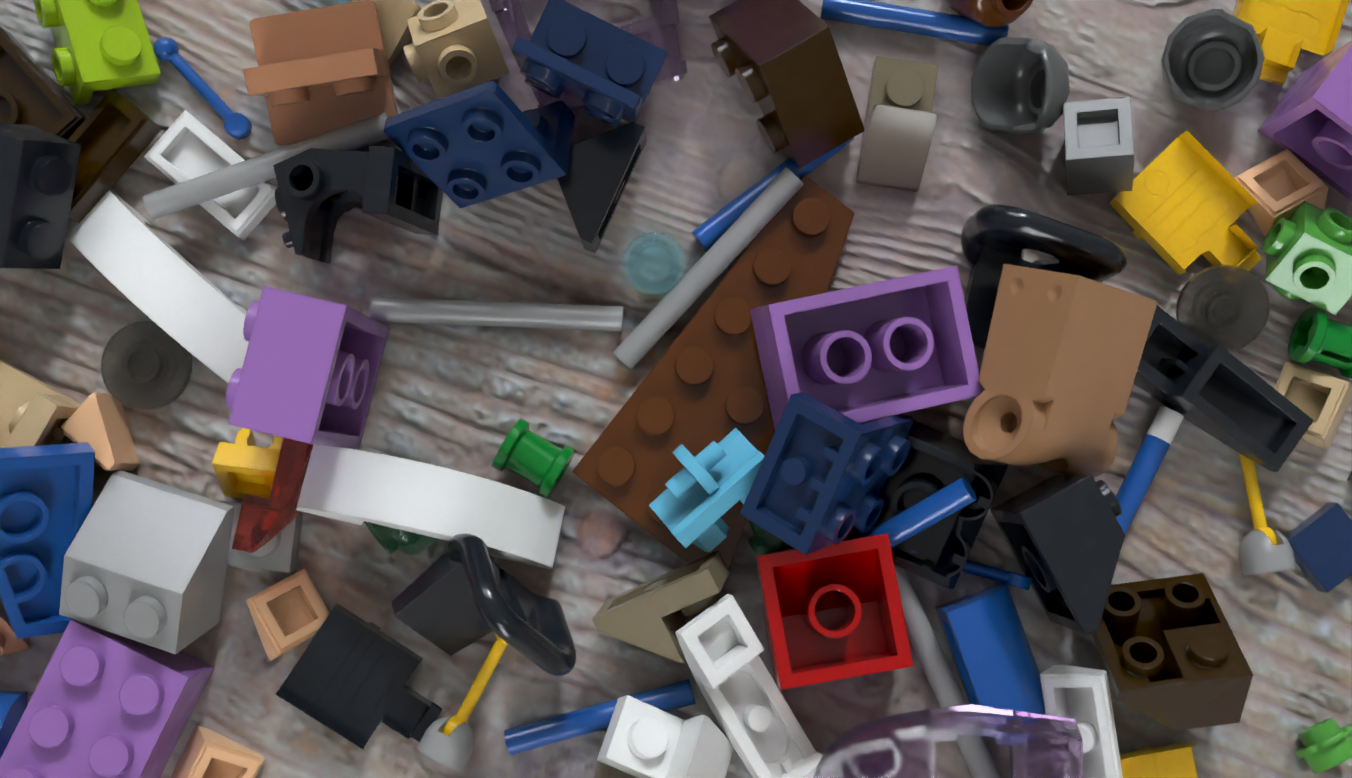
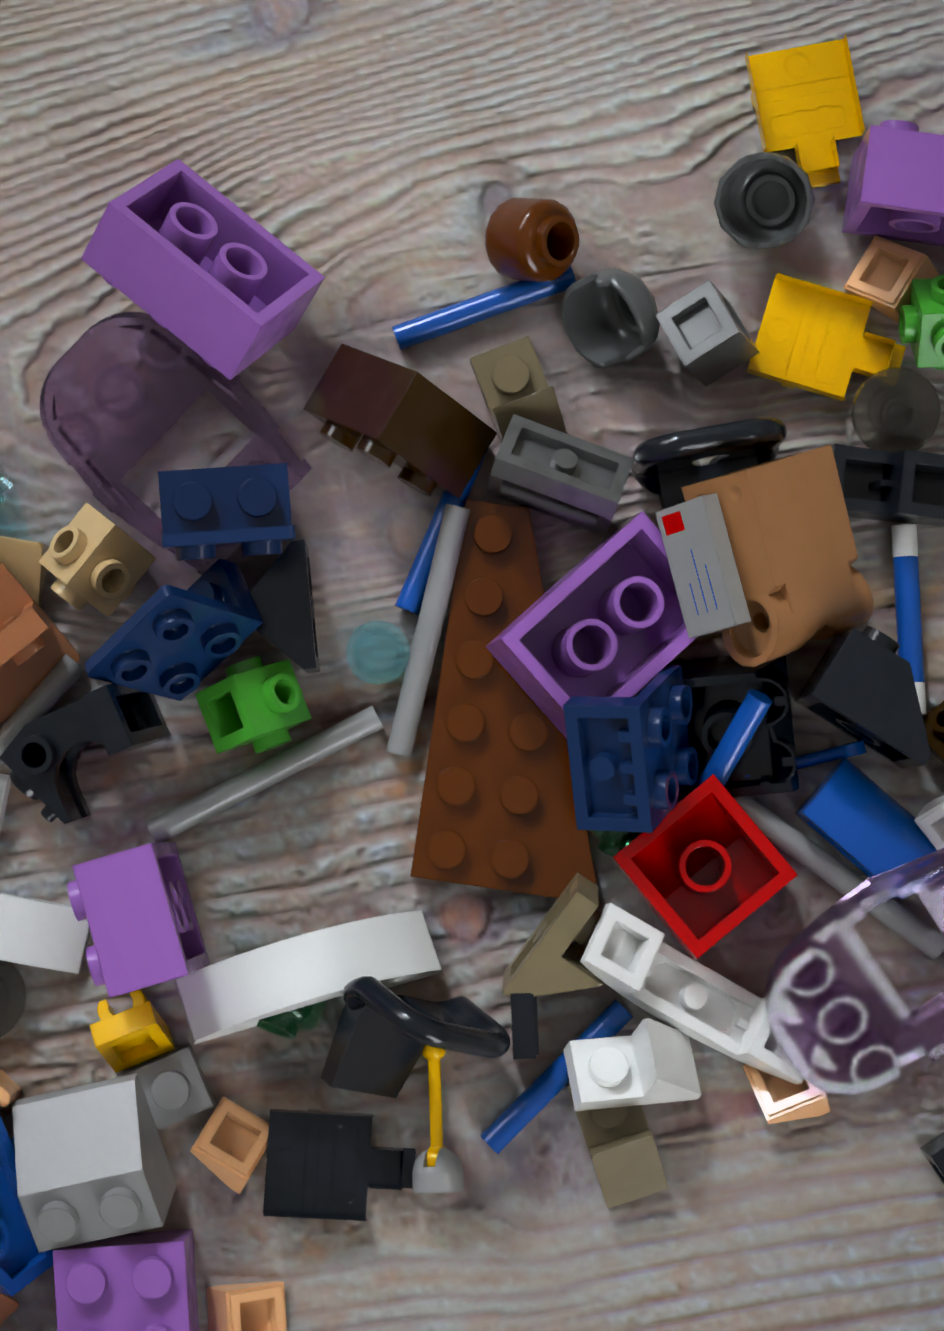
camera: 30 degrees left, 0 degrees up
(267, 515) = (168, 1065): clear red slope -> none
(519, 246) = (266, 702): none -> bright green brick
(533, 458) = (370, 883): green bush -> none
(595, 659) = (524, 1026): none -> black tile
(707, 490) = (538, 824): medium azure hips -> none
(905, 189) = (559, 475): none -> flat silver tile
(986, 342) = (703, 566): none -> light grey tile

